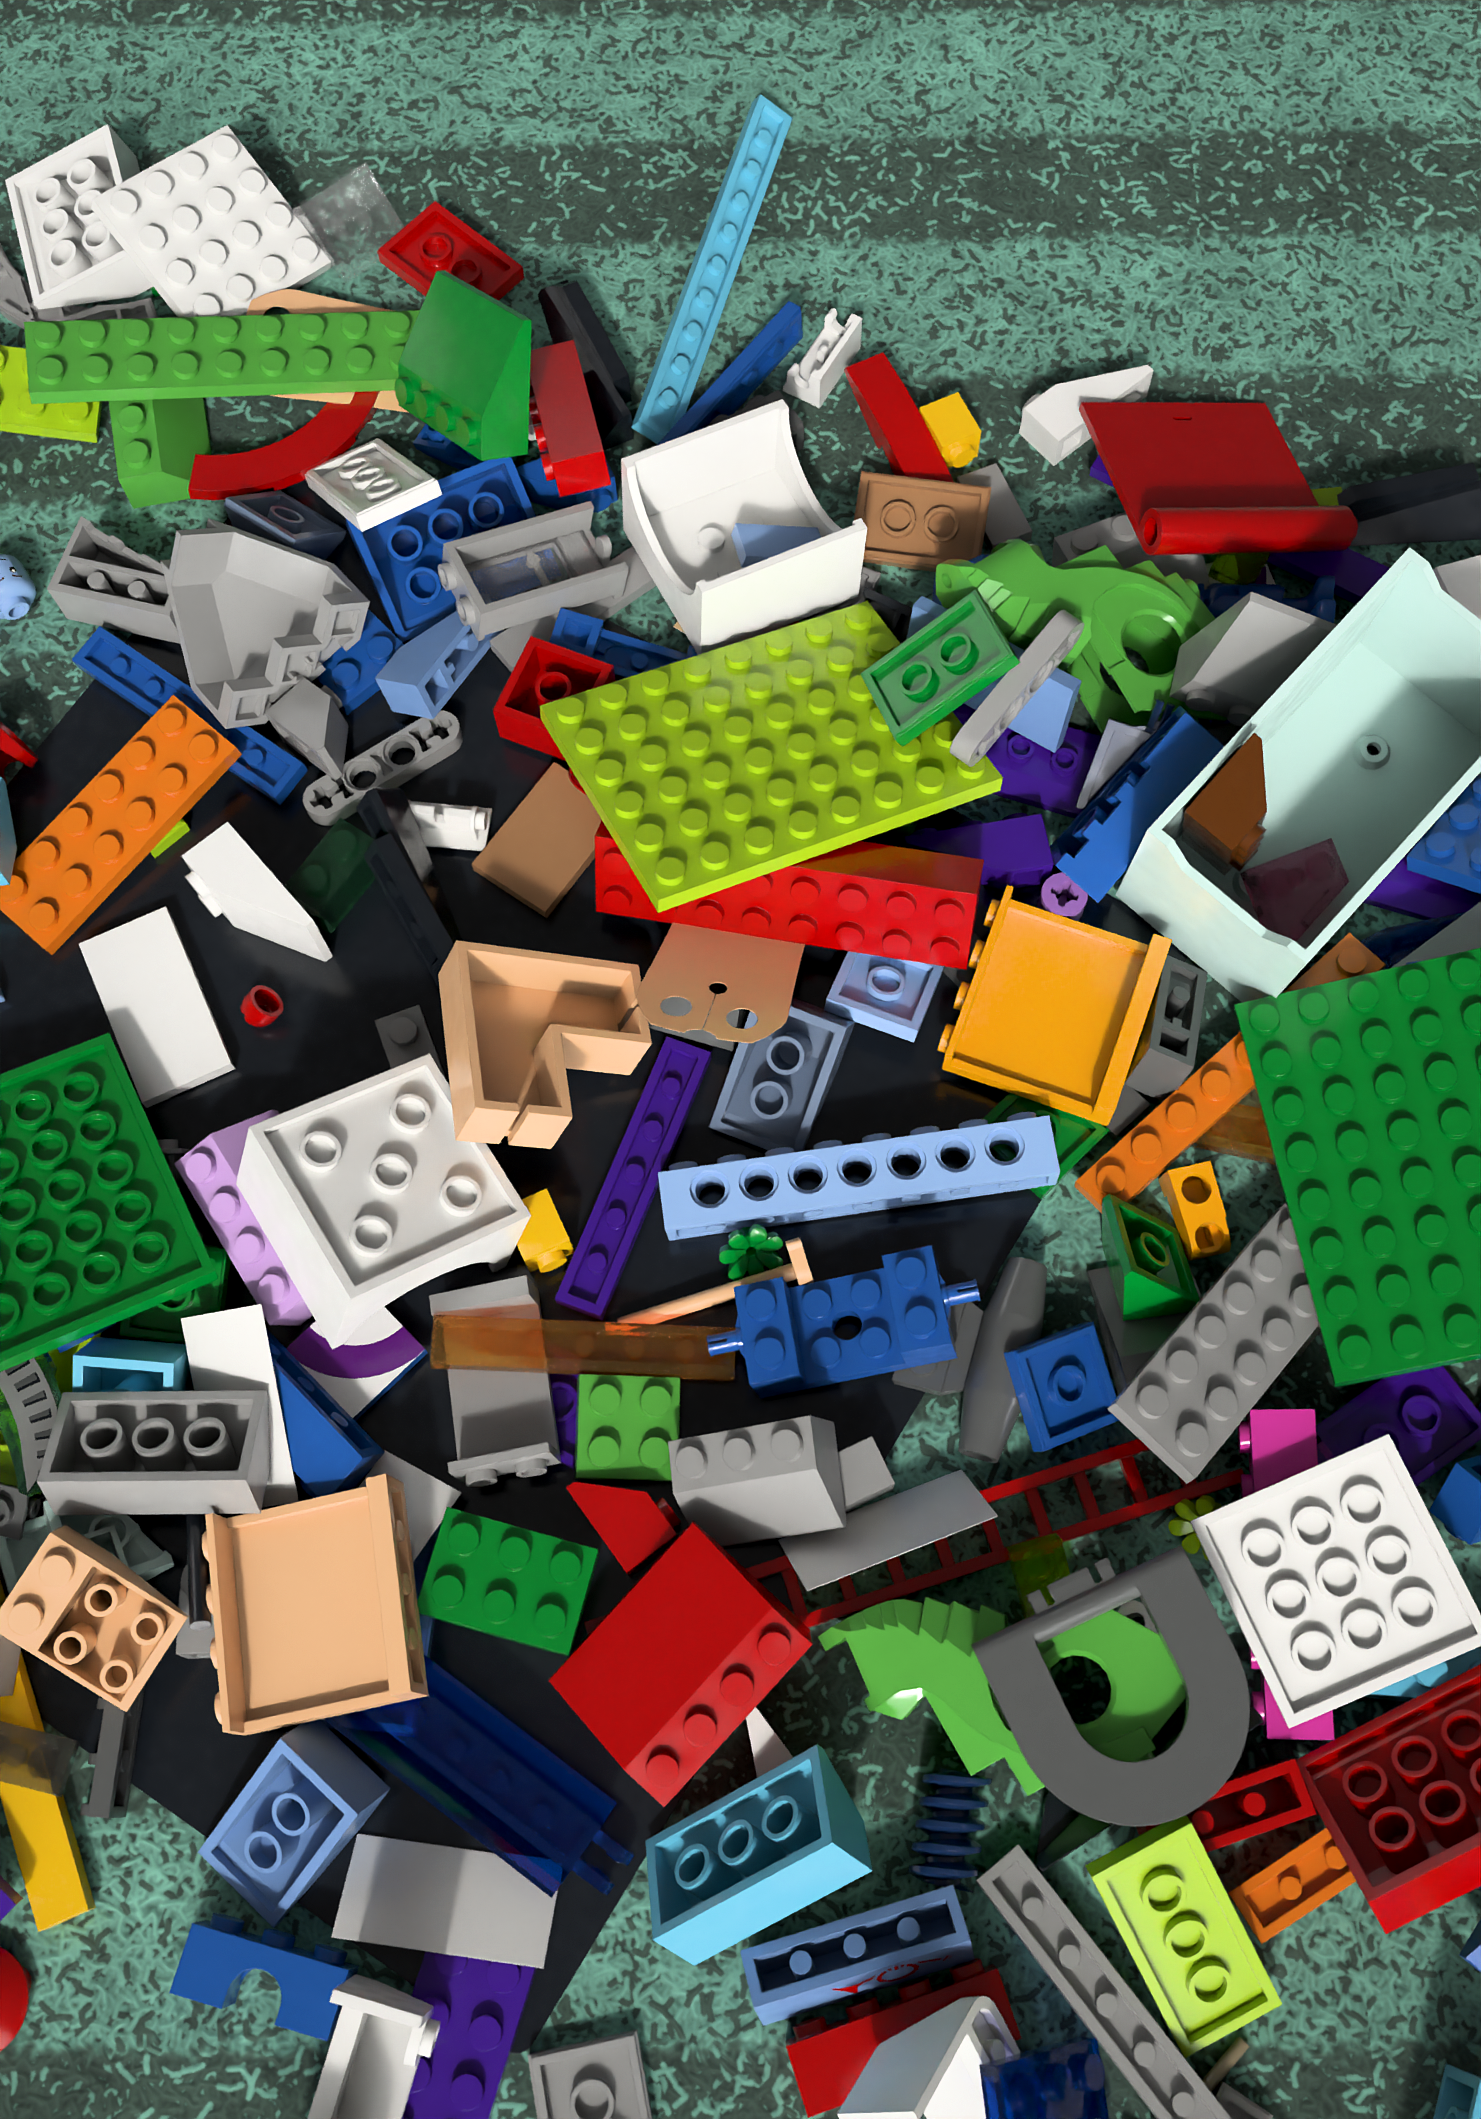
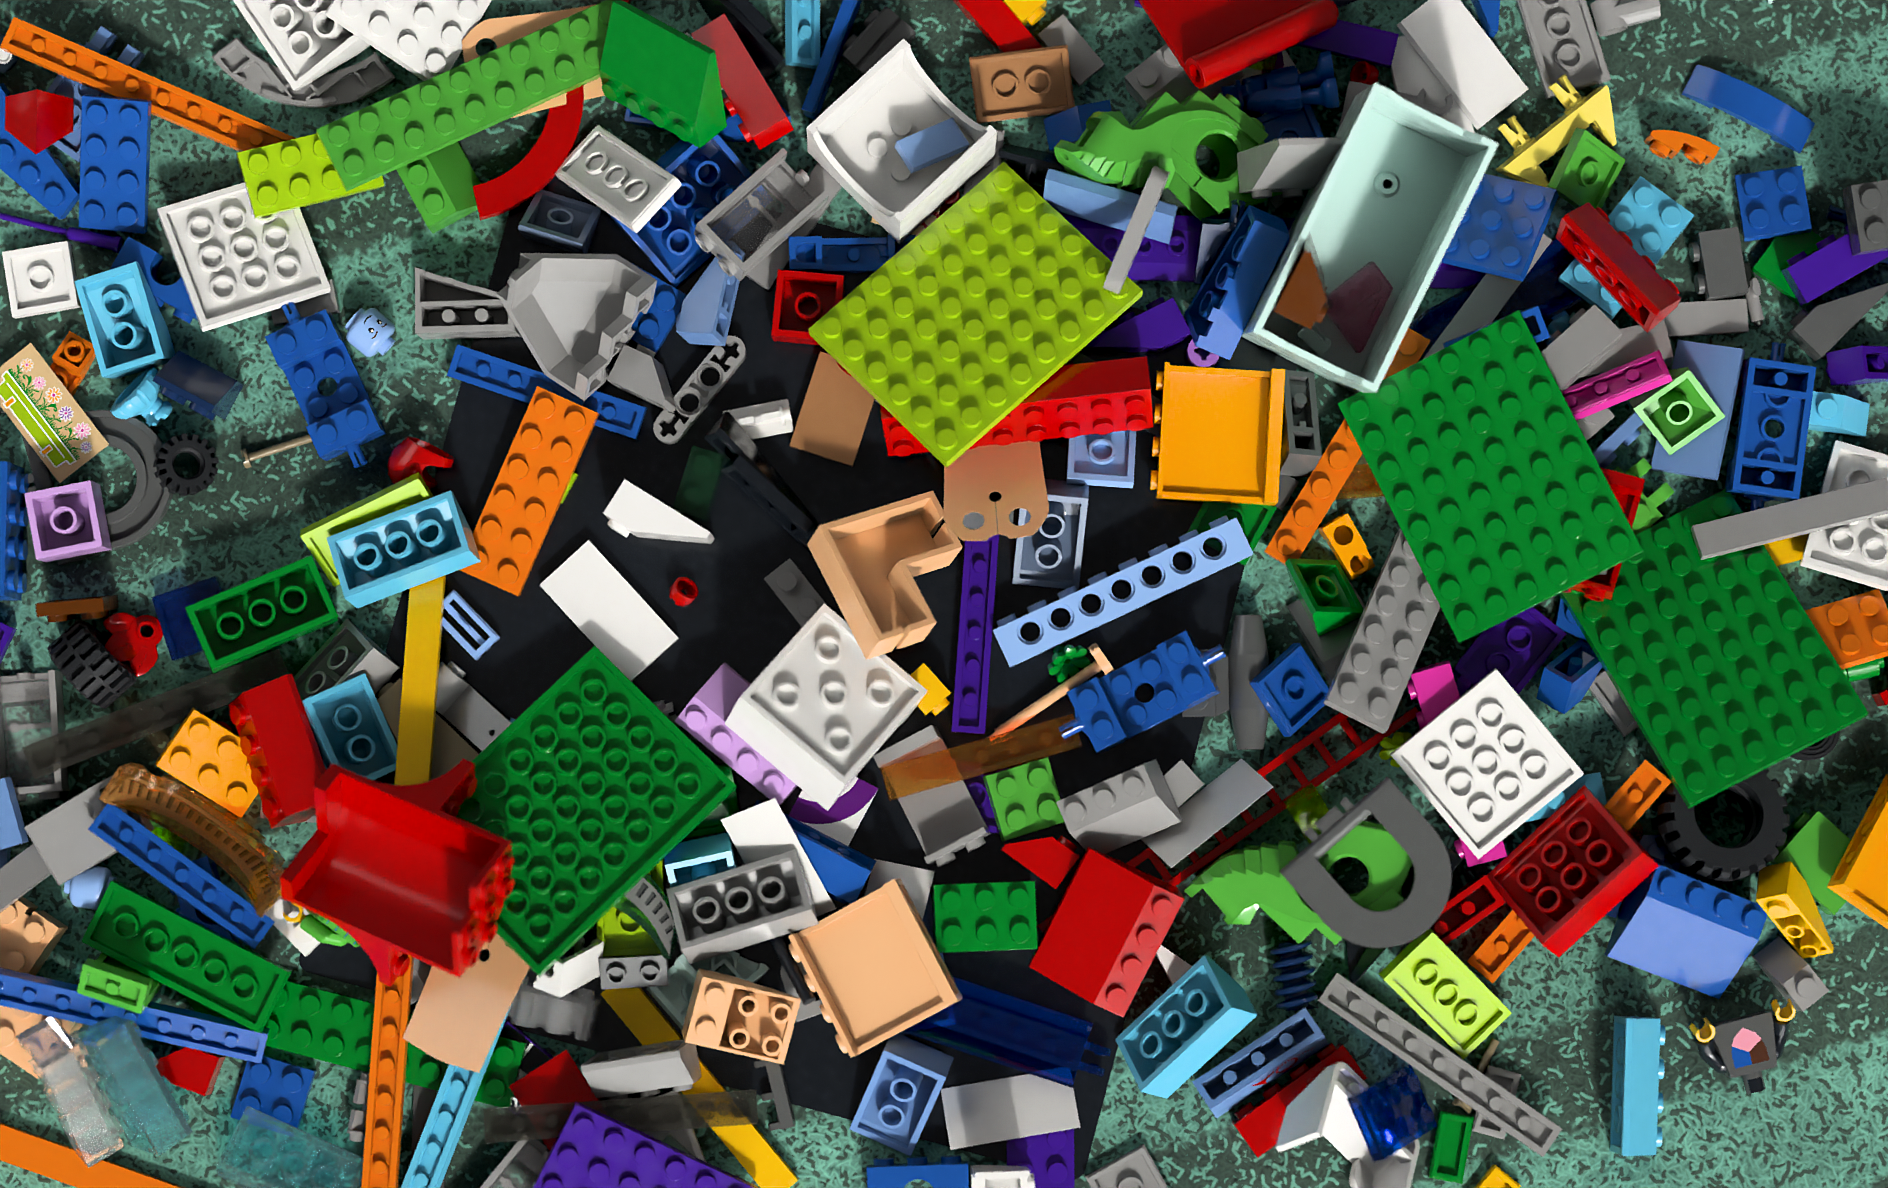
camera: 20 degrees left, 15 degrees up
(939, 668) = (1078, 228): green tile -> none

